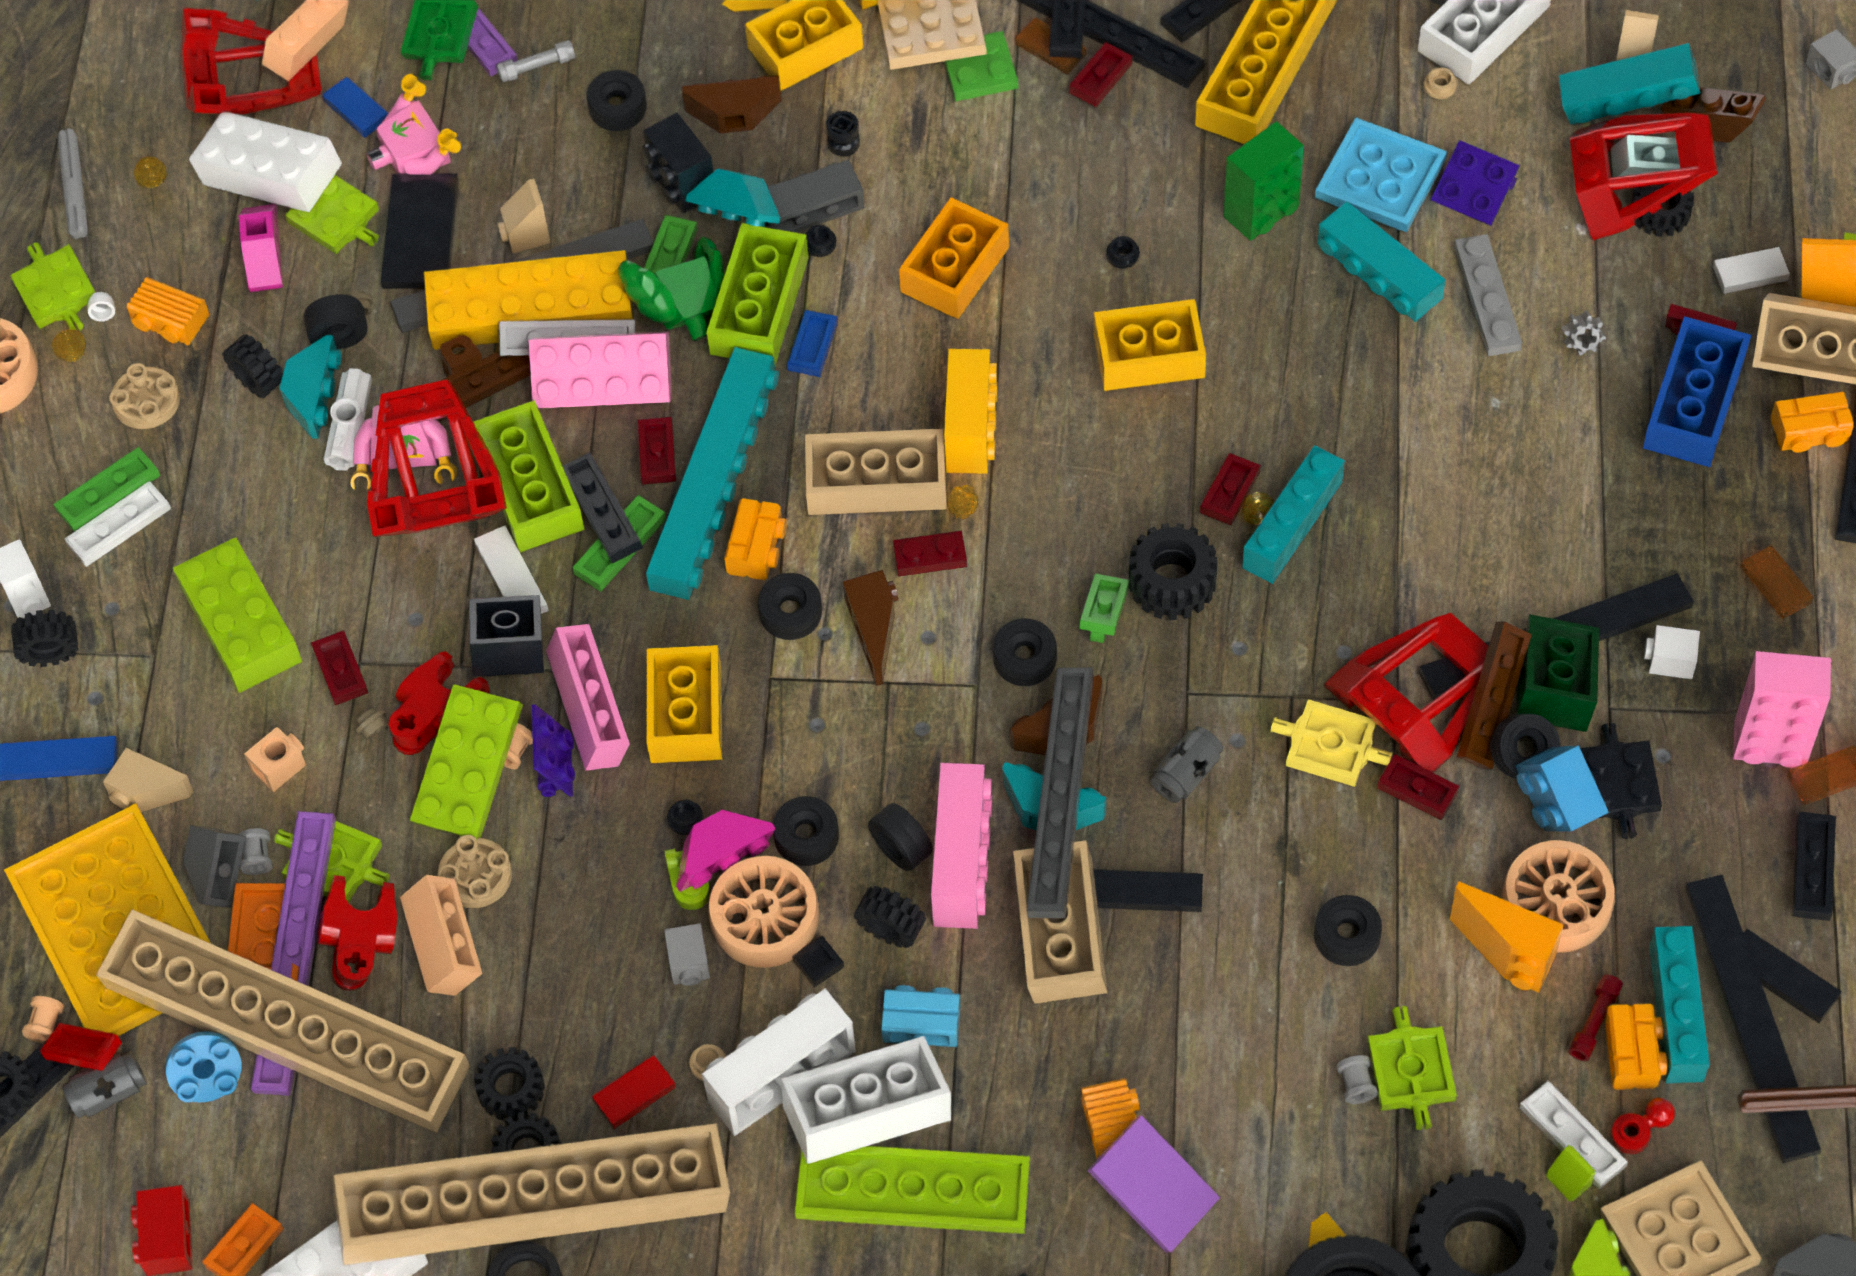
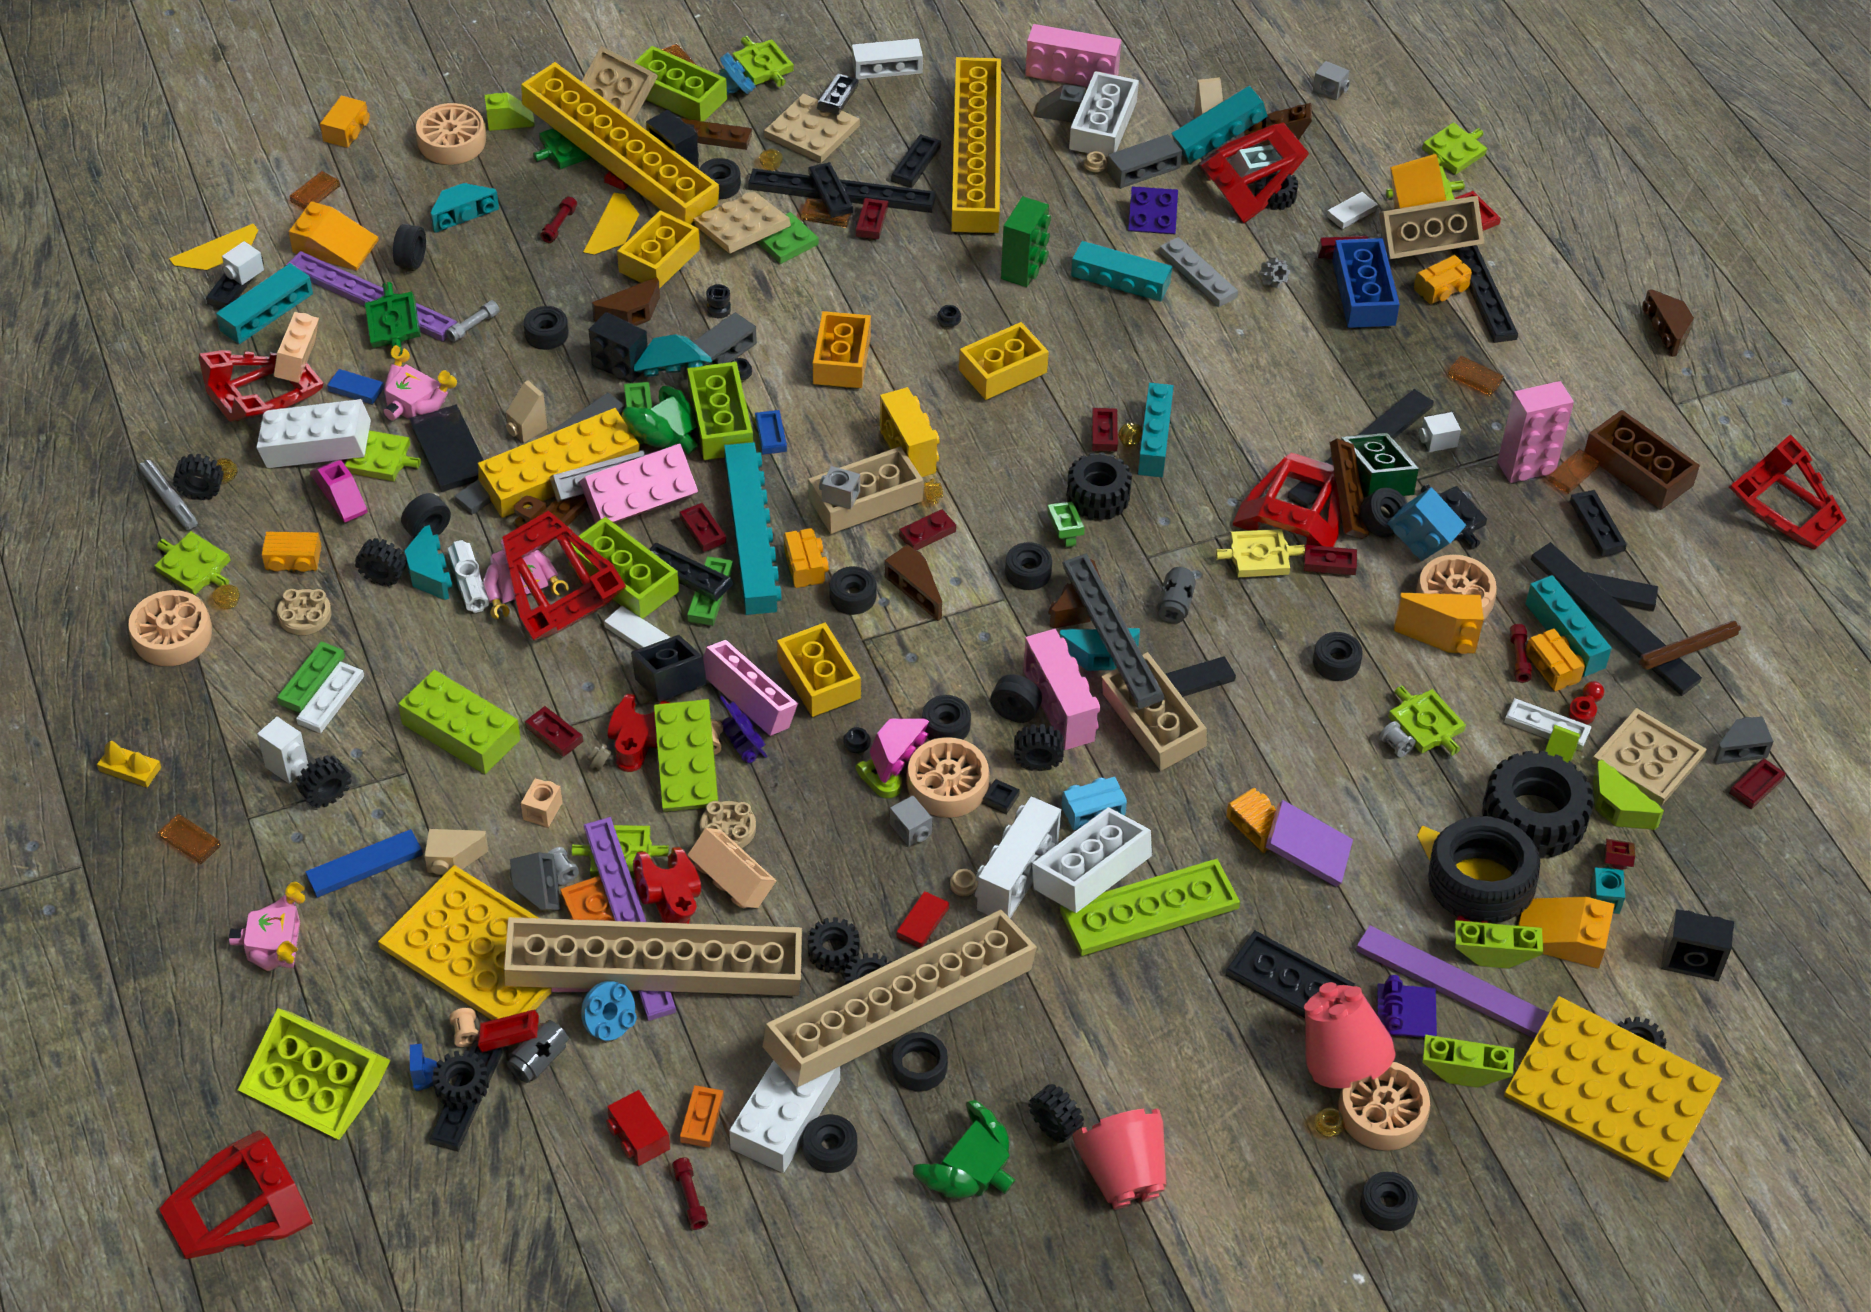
camera: 30 degrees left, 10 degrees down
(98, 306) = (235, 568): white hinge -> none
(108, 174) = (202, 487): none -> black tyre
(831, 476) = (840, 487): none -> light grey brick
(1381, 174) = (1090, 219): medium azure plate -> none
(1504, 103) = (1144, 161): none -> dark grey brick

